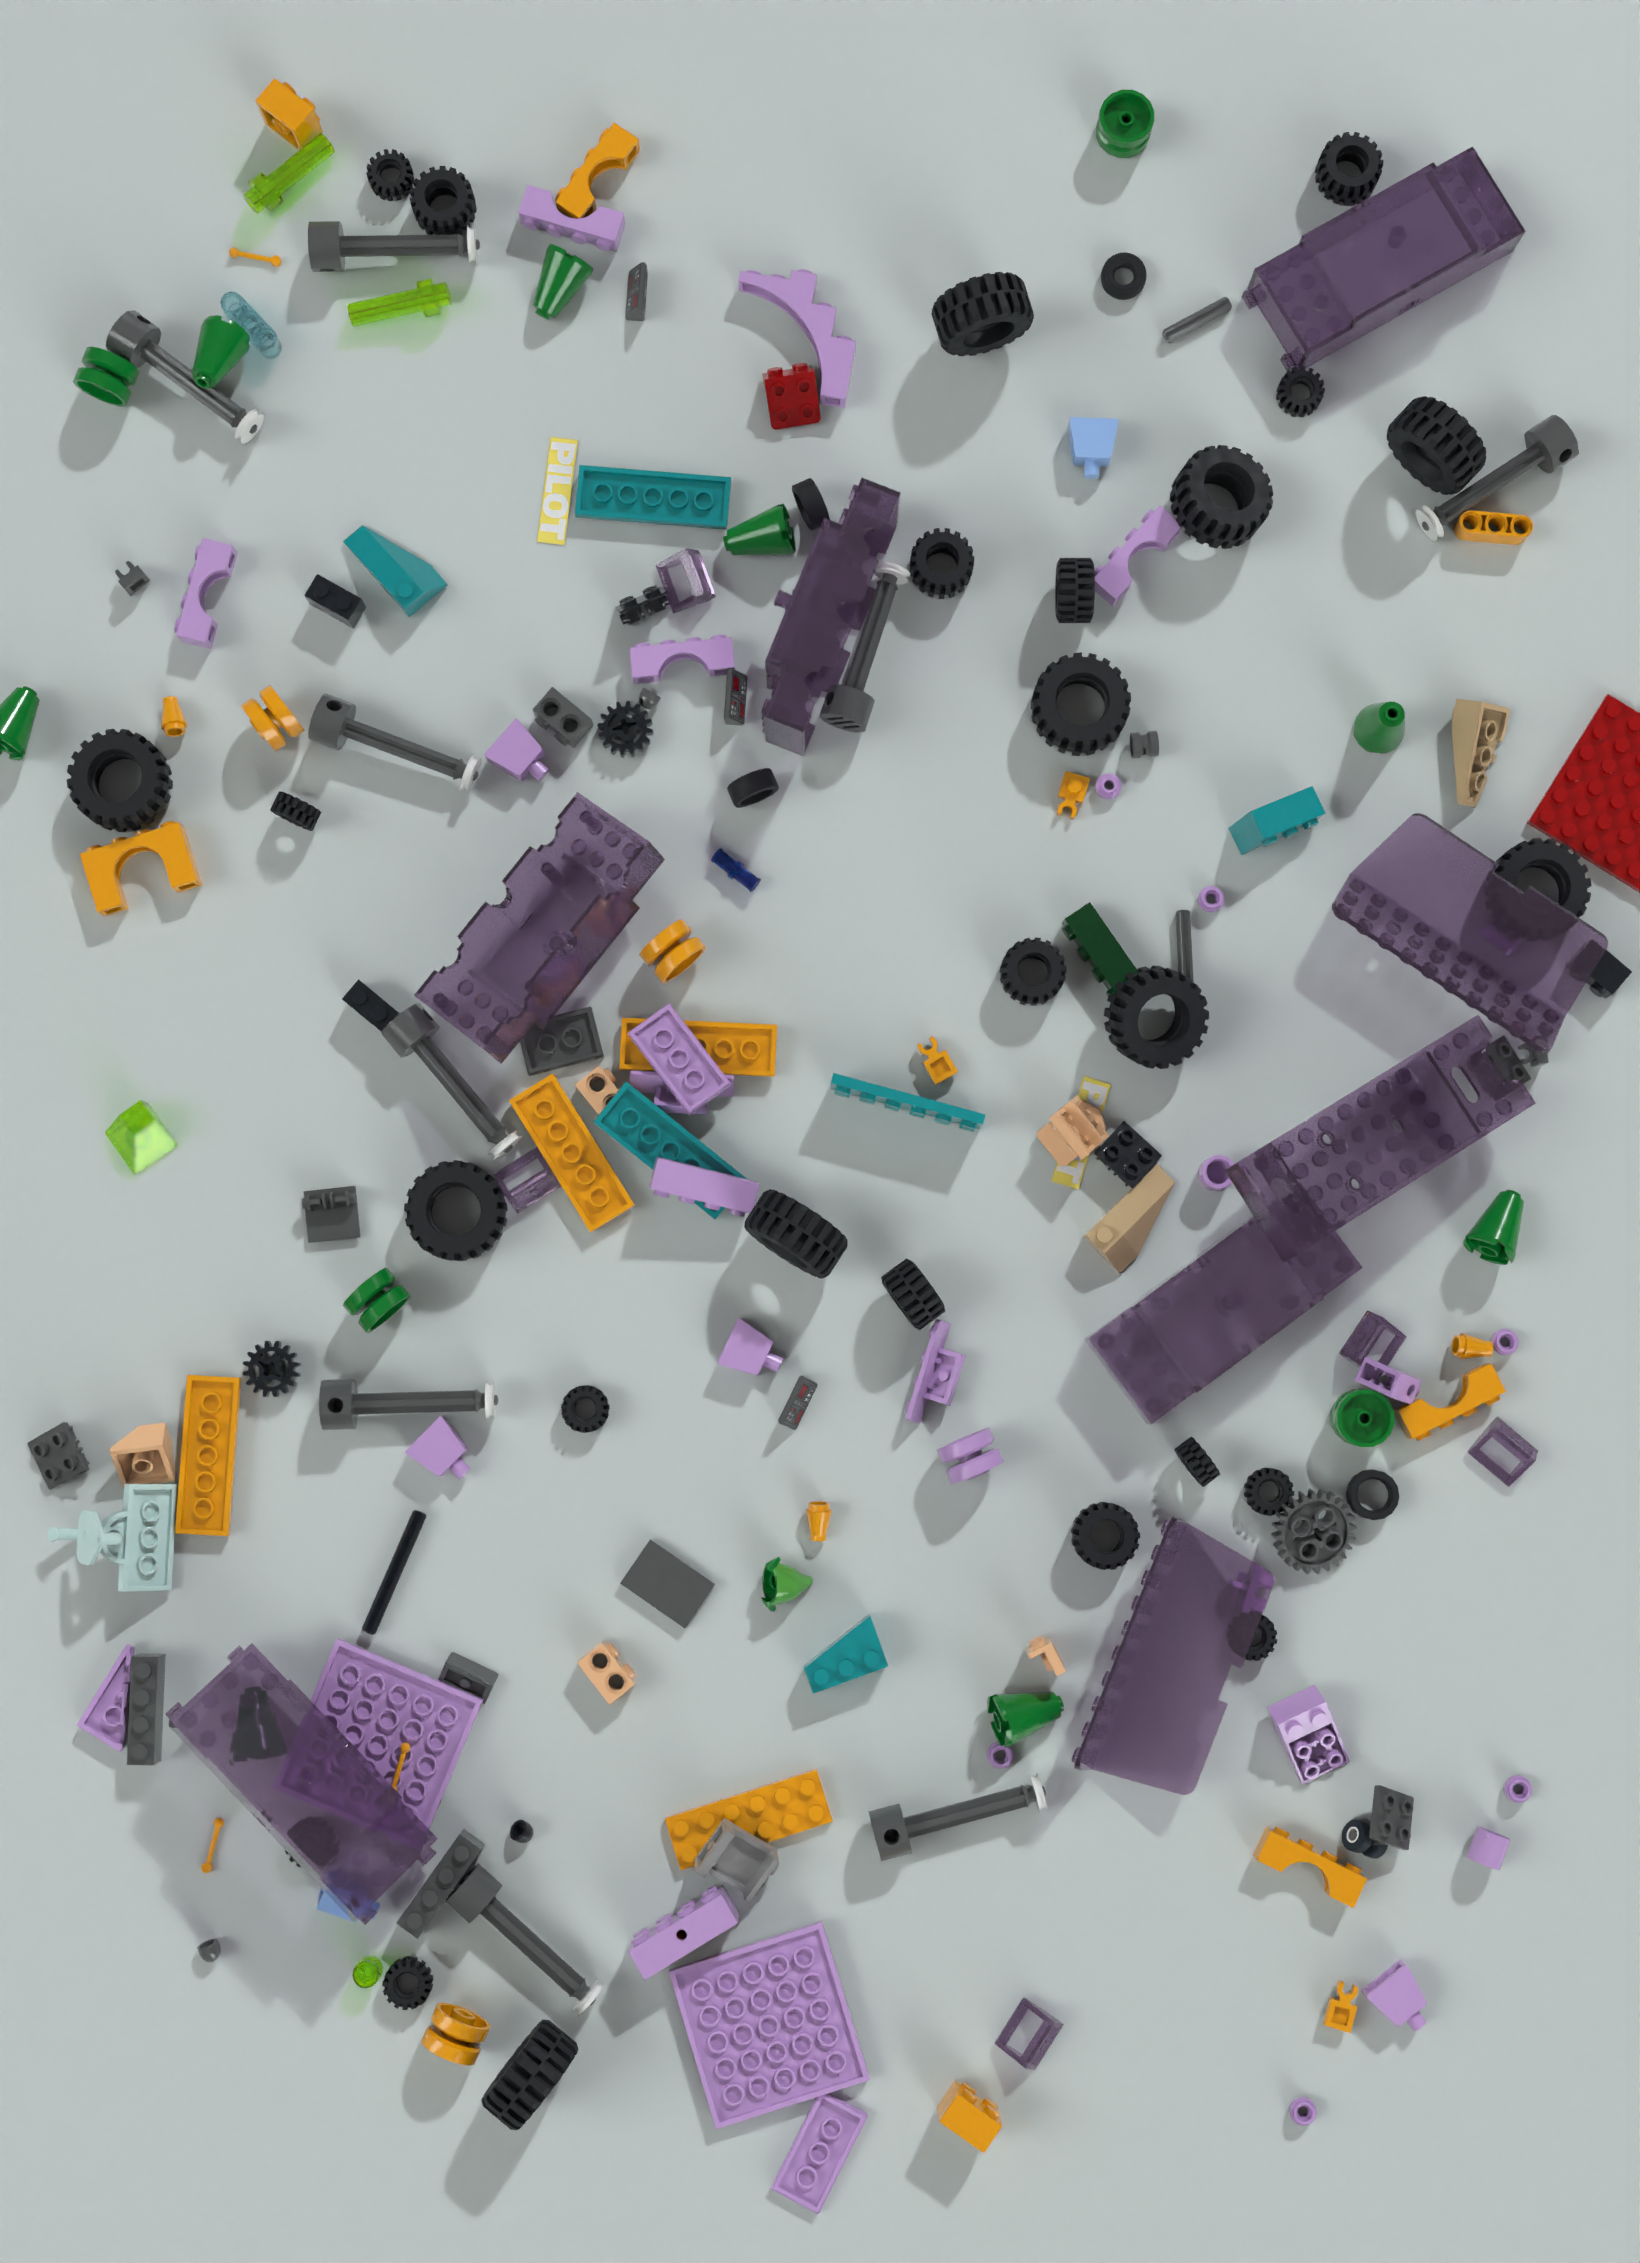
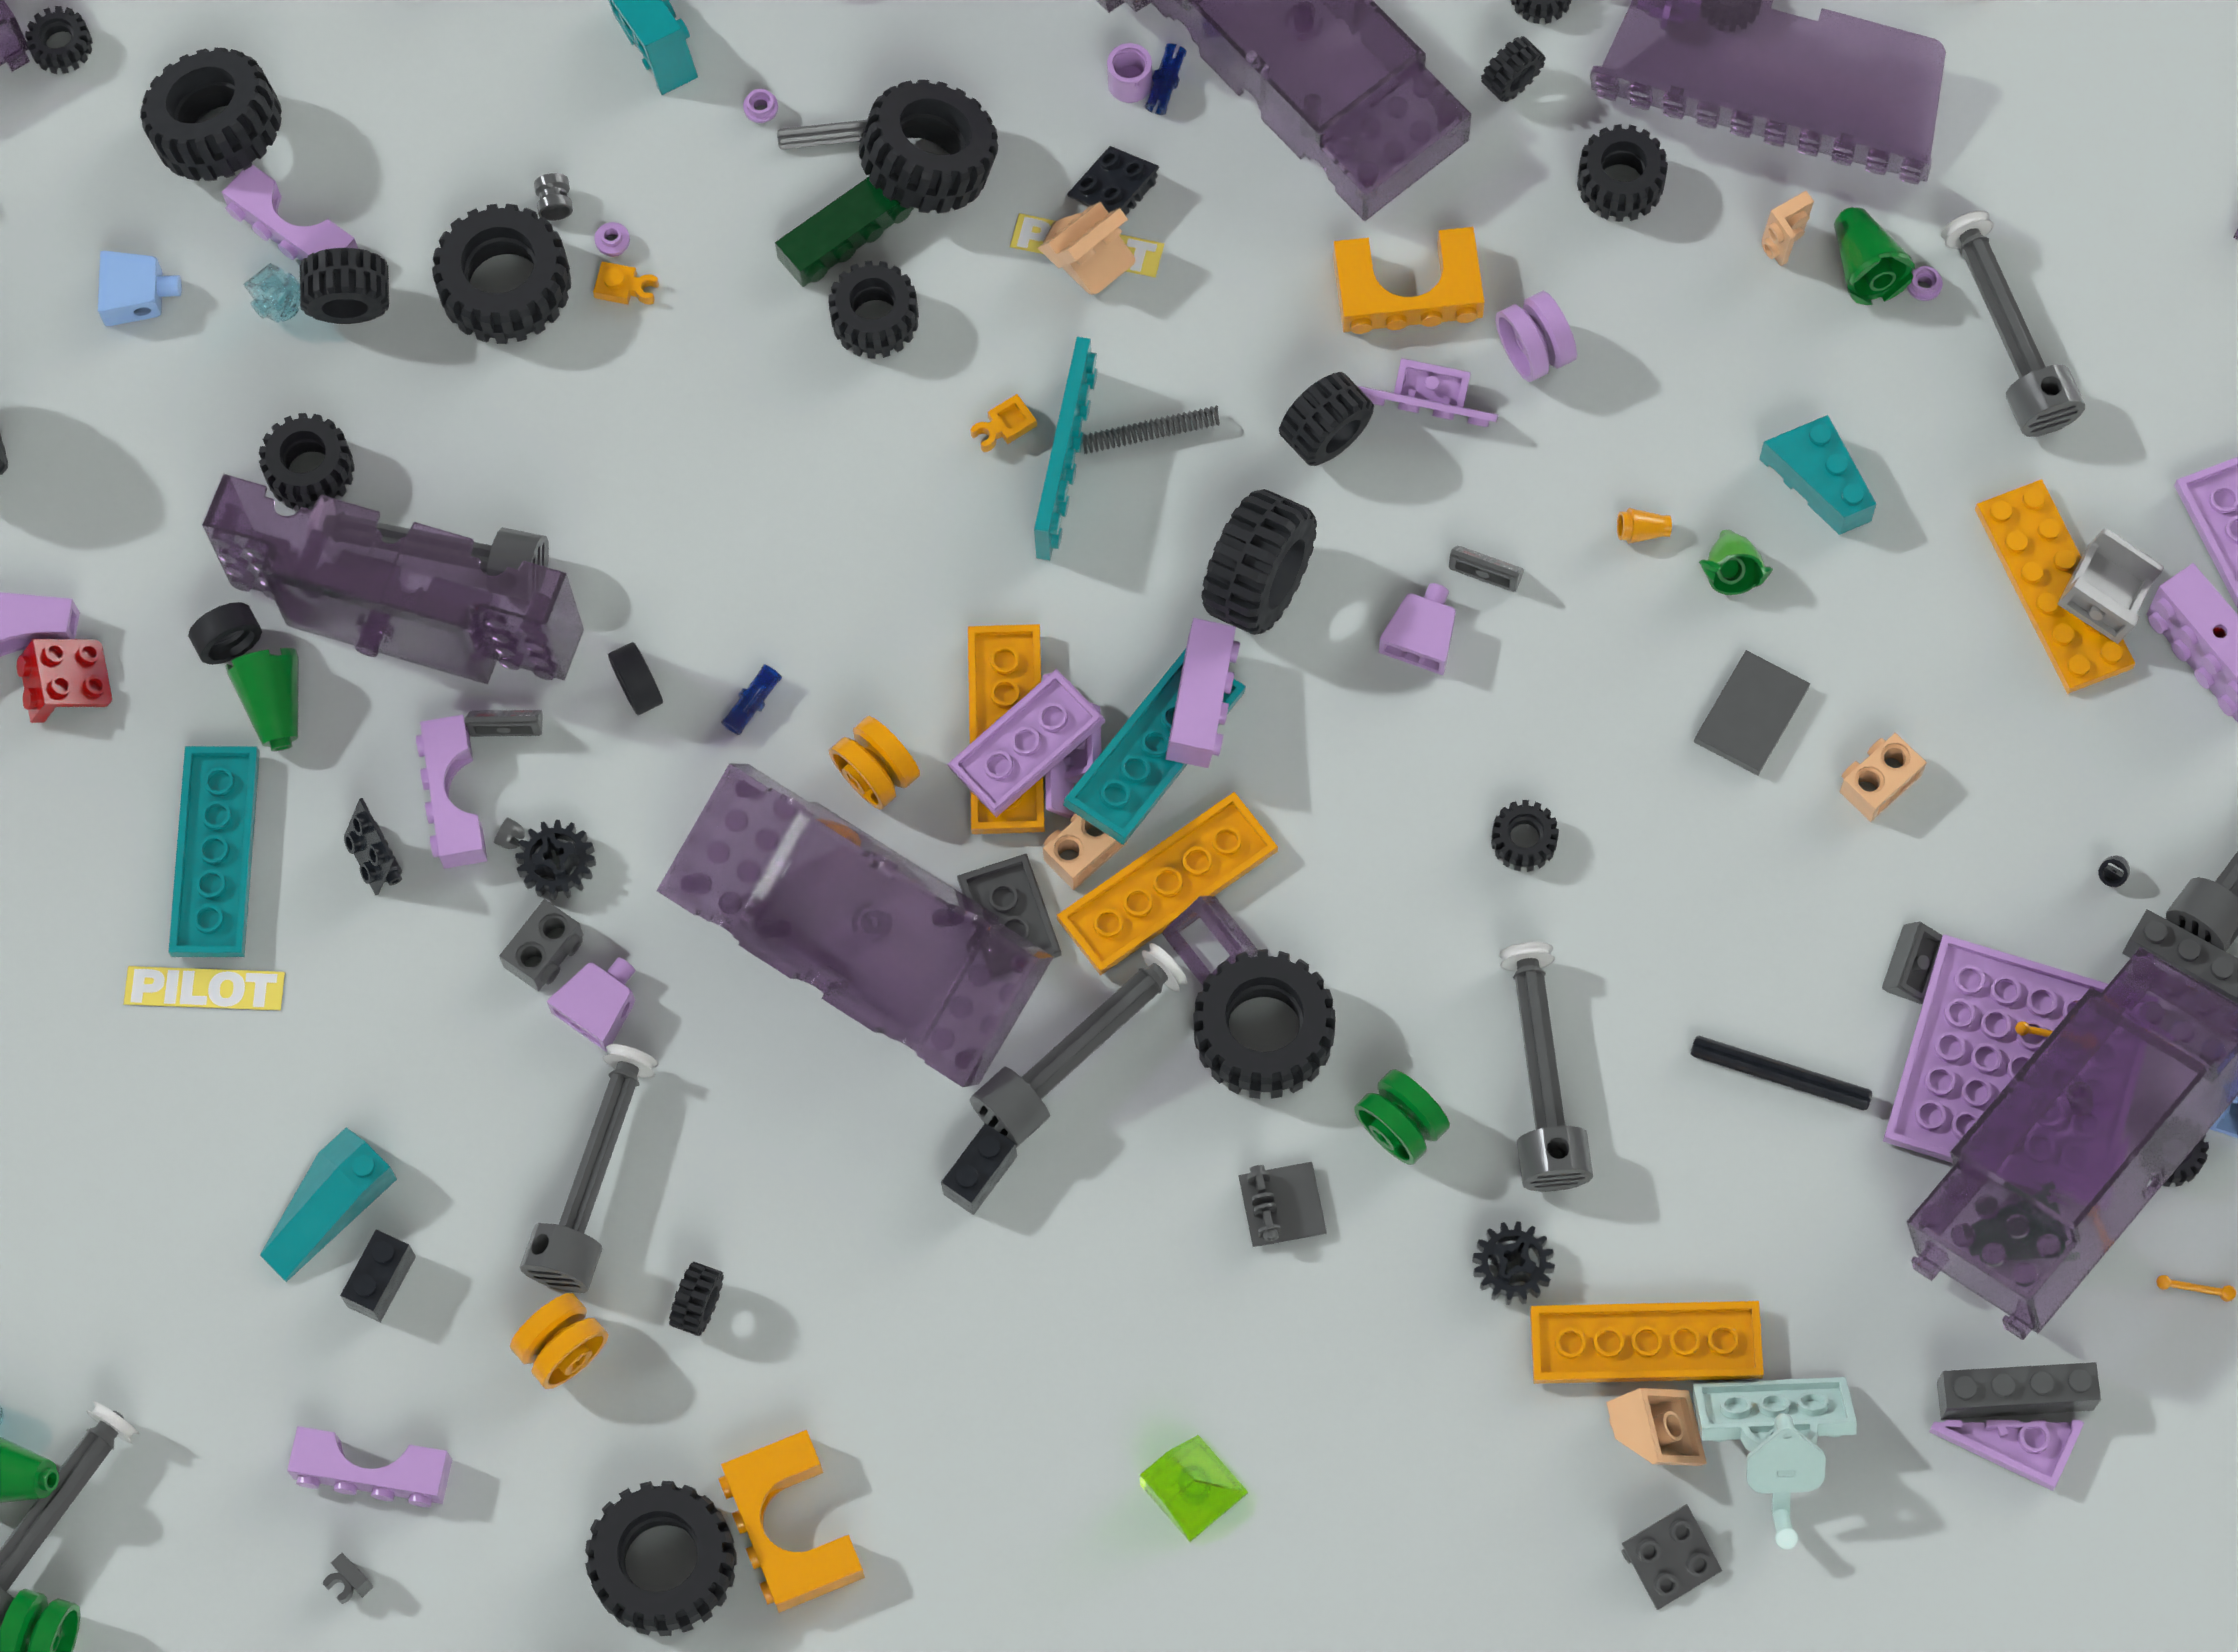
camera: 90 degrees left, 15 degrees down
(172, 717) = (560, 1498): light orange cone -> none
(440, 1449) = (1601, 1021): lavender torso -> none
(695, 574) = (325, 783): clear purple tile -> none
(922, 1169) = (1110, 434): none -> dark grey piece
(1014, 1401) = (1370, 306): none -> light orange arch
(1077, 541) = (274, 293): none -> clear light blue brick
(1128, 1223) = (1205, 180): tan wedge -> none
(1212, 1200) = (1165, 79): none -> clear blue pin

